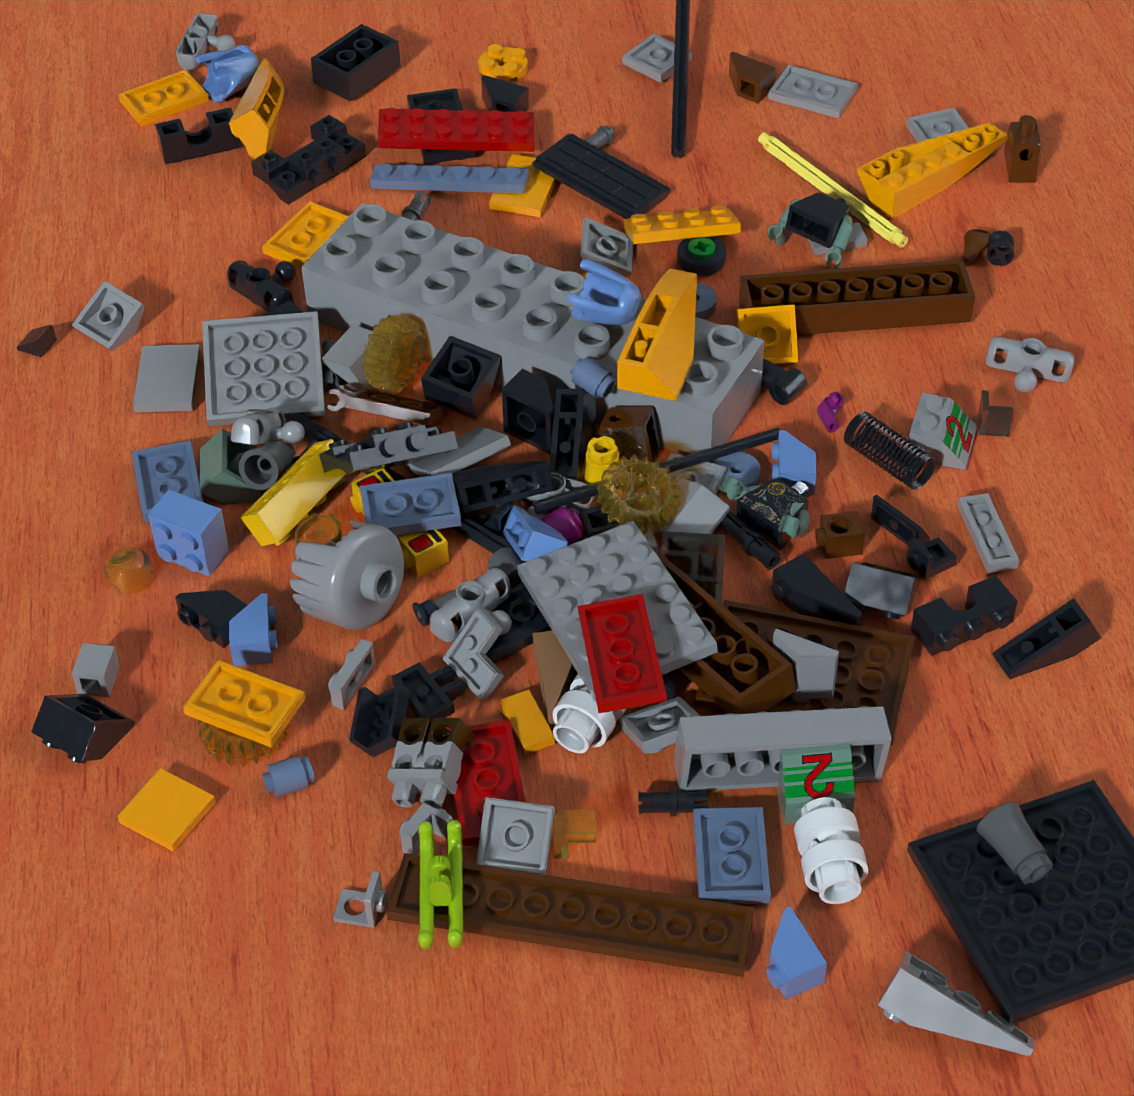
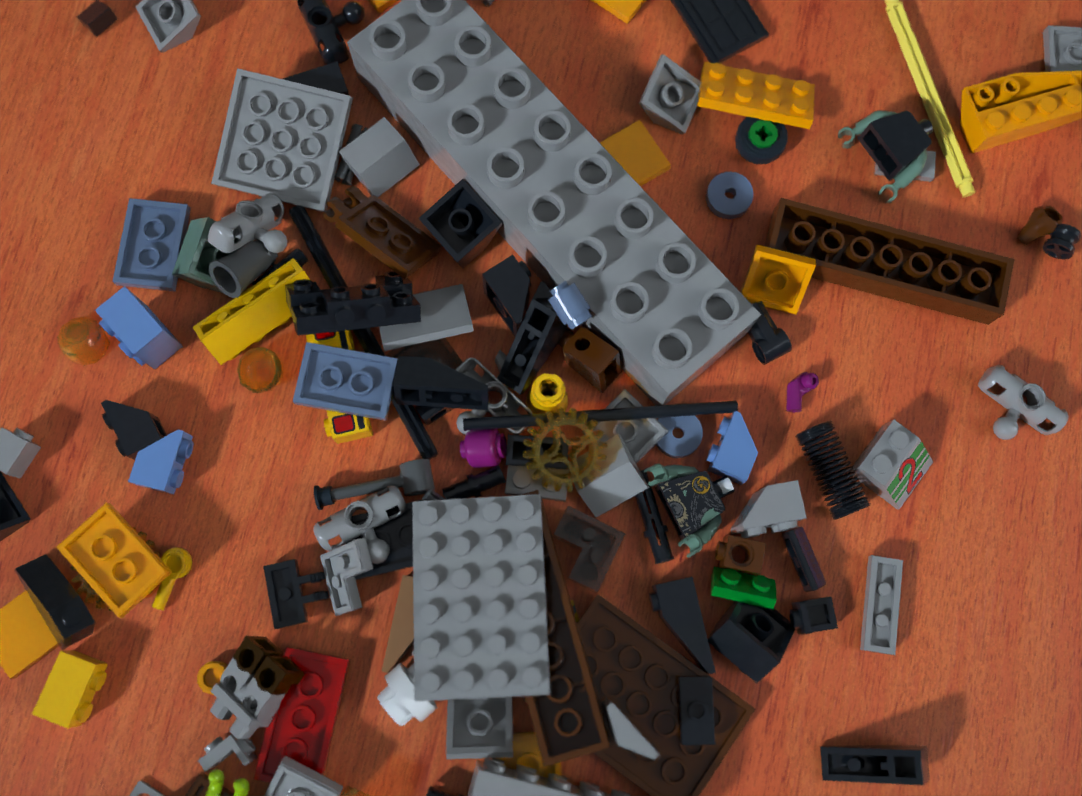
camera: 15 degrees right, 30 degrees up
(167, 378) = (196, 110): light grey tile -> none
(204, 766) = (56, 601): none -> black slope
(240, 830) = (70, 689): none -> yellow brick
(288, 776) = (133, 643): sand blue brick -> none
(305, 712) = (180, 564): none -> yellow plate
(351, 579) = (259, 458): light grey piece -> none
(352, 674) = (222, 554): light grey plate -> none
(377, 785) = (210, 675): none -> light orange tile
(378, 719) = (233, 611): black bracket -> none
(393, 353) = (405, 175): clear yellow gear -> none
(527, 722) = (366, 659): light orange tile -> none
(530, 535) = (448, 462): medium blue slope -> none
(606, 296) = (614, 222): medium blue hair -> none
(621, 653) = (450, 681): red plate -> none
(661, 339) = (655, 293): light orange wedge -> none
(842, 554) = (743, 587): none -> green plate
(851, 482) = (771, 507): none -> light grey slope
(860, 649) = (696, 710): none -> black plate
(943, 628) = (841, 700): black arch -> none
(993, 419) = (953, 462): clear smoke panel -> none

